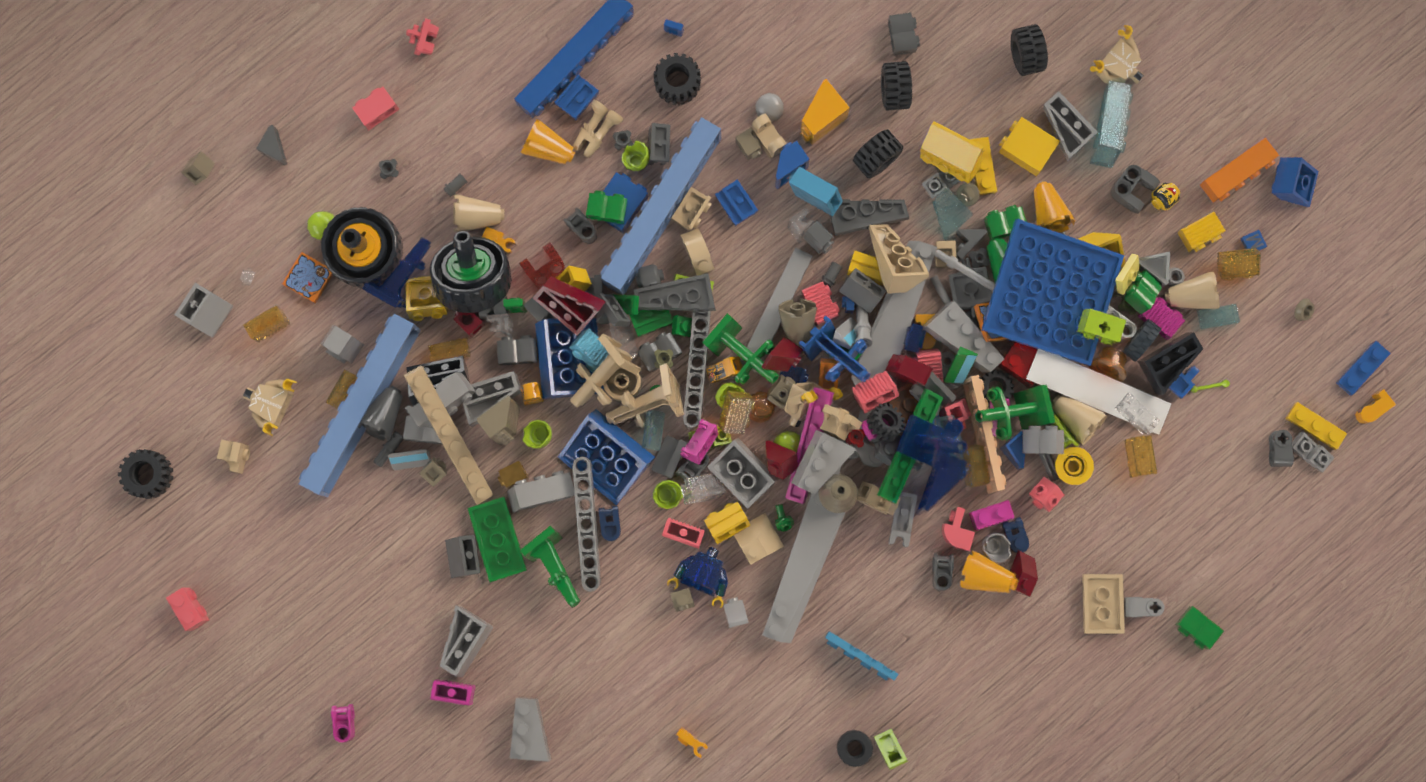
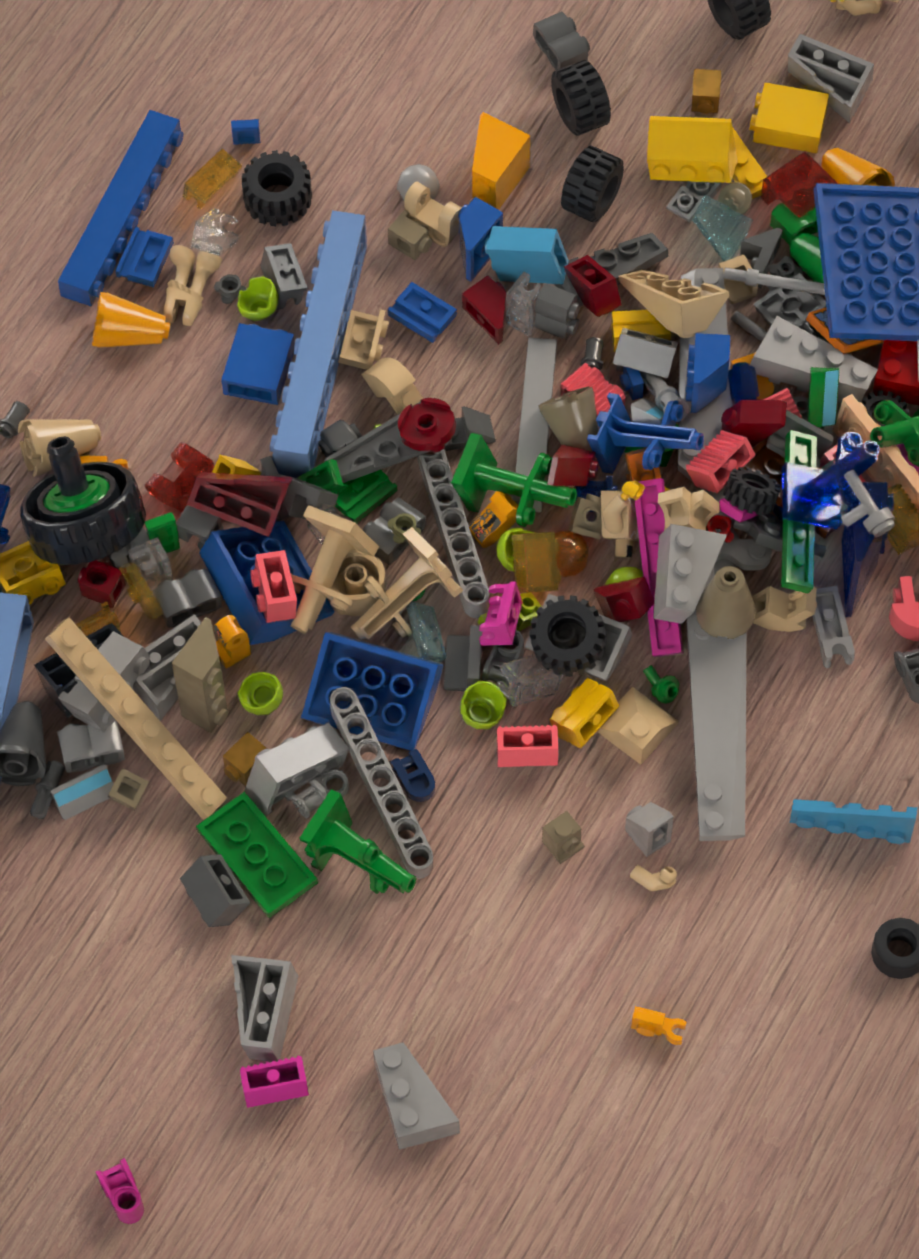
camera: 25 degrees left, 20 degrees down
(488, 340) = (140, 591): none -> clear yellow plate
(550, 512) = (317, 792): none -> light grey connector
(566, 376) = (275, 586): none -> coral brick
(579, 224) = (211, 410): dark grey piece -> none
(589, 349) = (299, 550): medium azure brick -> none
(606, 208) = (245, 366): green brick -> none
(625, 100) = (211, 234): none -> clear hinge
(639, 56) = (211, 177): none -> clear yellow hinge
(681, 326) = (411, 487): green plate -> none
(703, 574) = (581, 790): clear blue torso -> none
(705, 306) = (432, 437): none -> dark red plate
(716, 477) = (568, 659): none -> black tyre
(727, 646) = (656, 881): none -> tan arm
(731, 297) = (471, 422): none -> dark grey slope
(779, 213) = (487, 306): none -> dark red slope
(849, 229) = (594, 285): none -> dark red slope
(894, 325) = (707, 369): none -> blue slope
(949, 490) = (879, 520): none -> light grey piece
(982, 106) = (706, 91): none -> pearl gold brick
(1013, 203) = (795, 184): none -> clear red bracket
(1112, 124) = (891, 57): clear light blue wedge -> none

